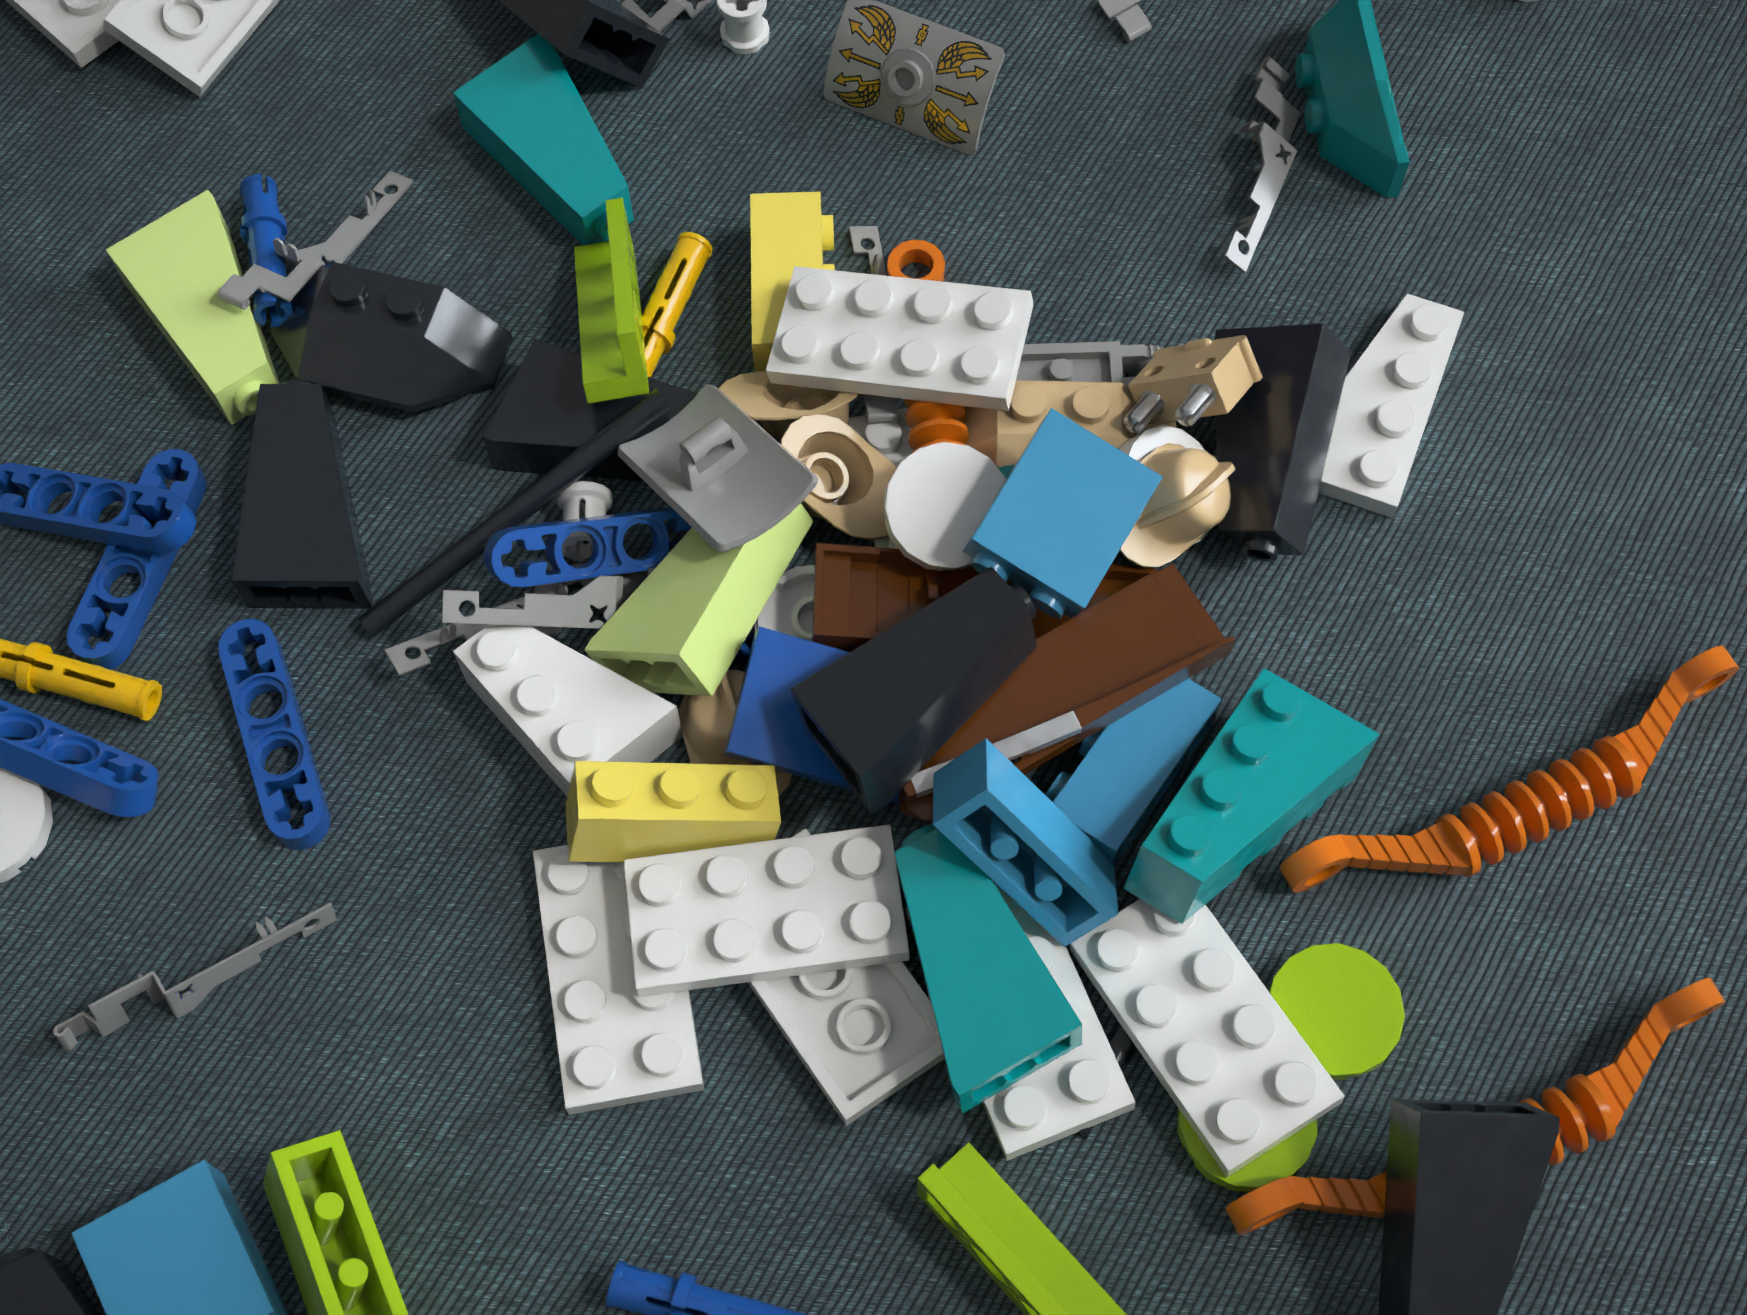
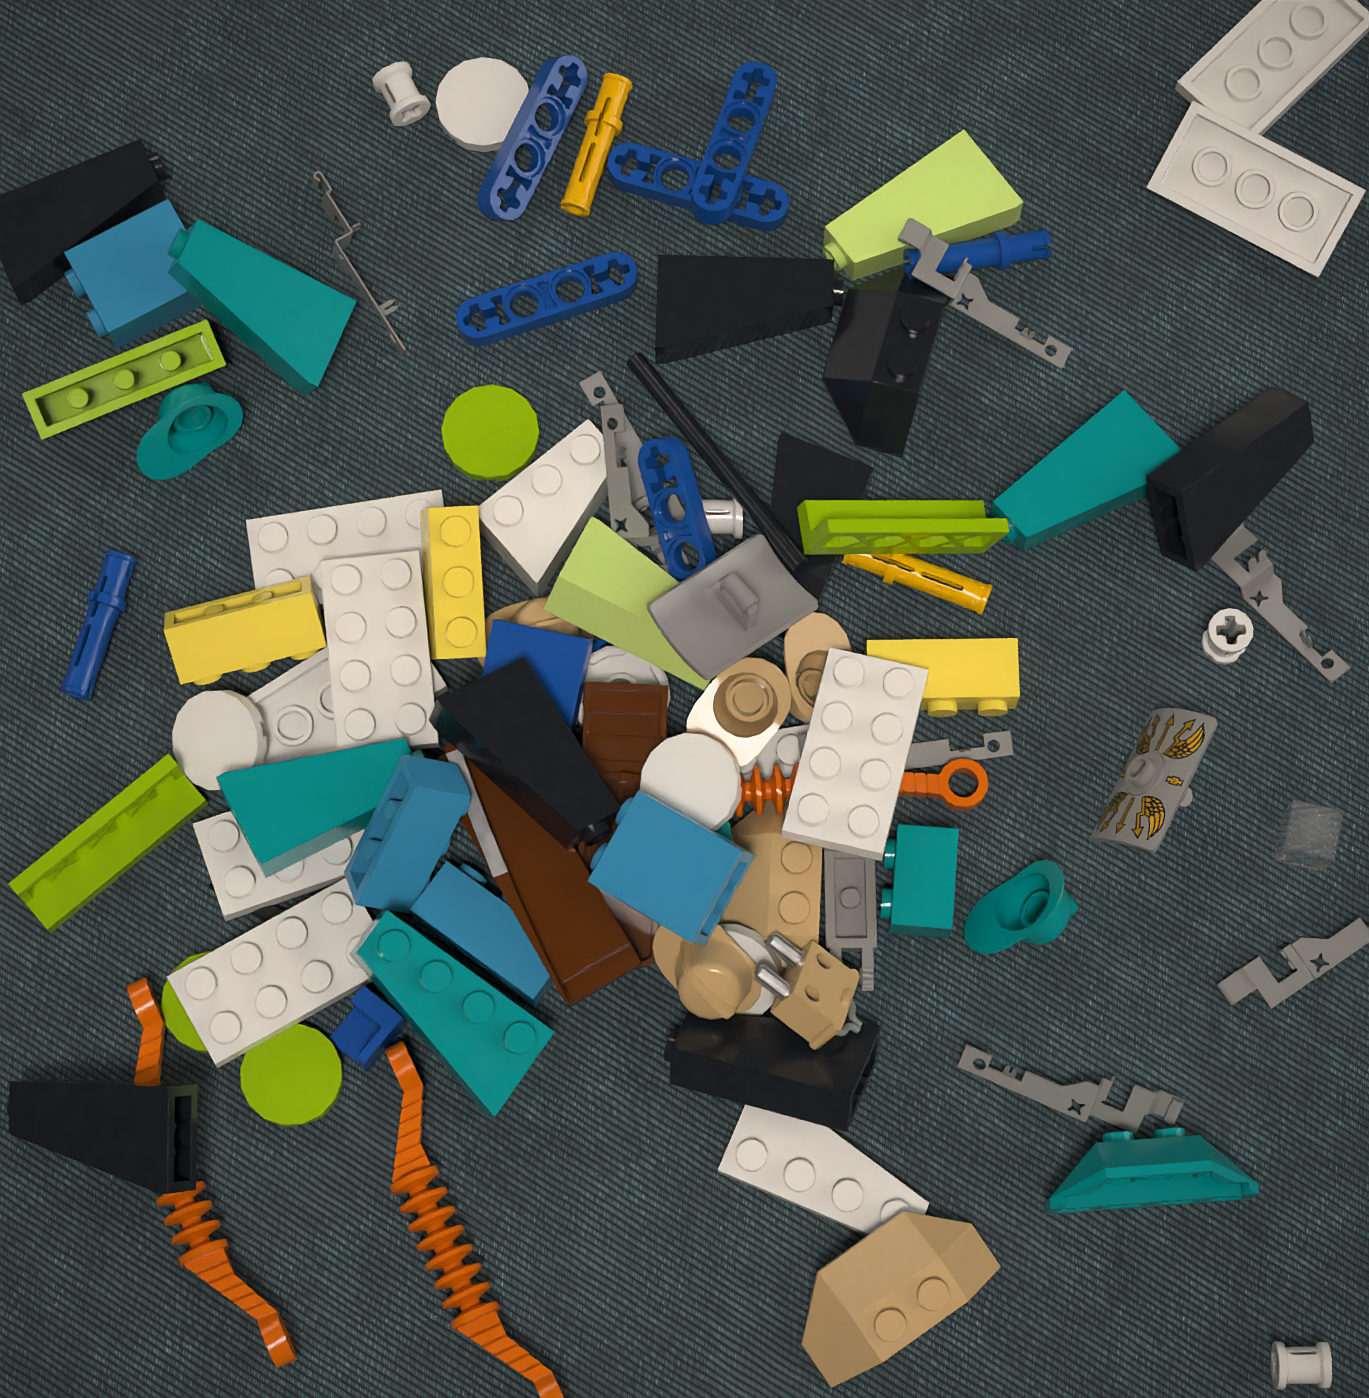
camera: 90 degrees right, 10 degrees up
(246, 1085) = (264, 302): none -> teal slope
(422, 1193) = (188, 428): none -> teal piece
(455, 796) = (490, 433): none -> lime tile
(731, 1090) = (245, 631): none -> light yellow brick
(887, 1121) = (216, 736): none -> white tile
(1061, 289) = (922, 881): none -> teal brick
(1066, 201) = (1023, 909): none -> teal piece
(1269, 912) = (367, 1029): none -> blue panel
(1526, 321) = (891, 1291): none -> tan wedge

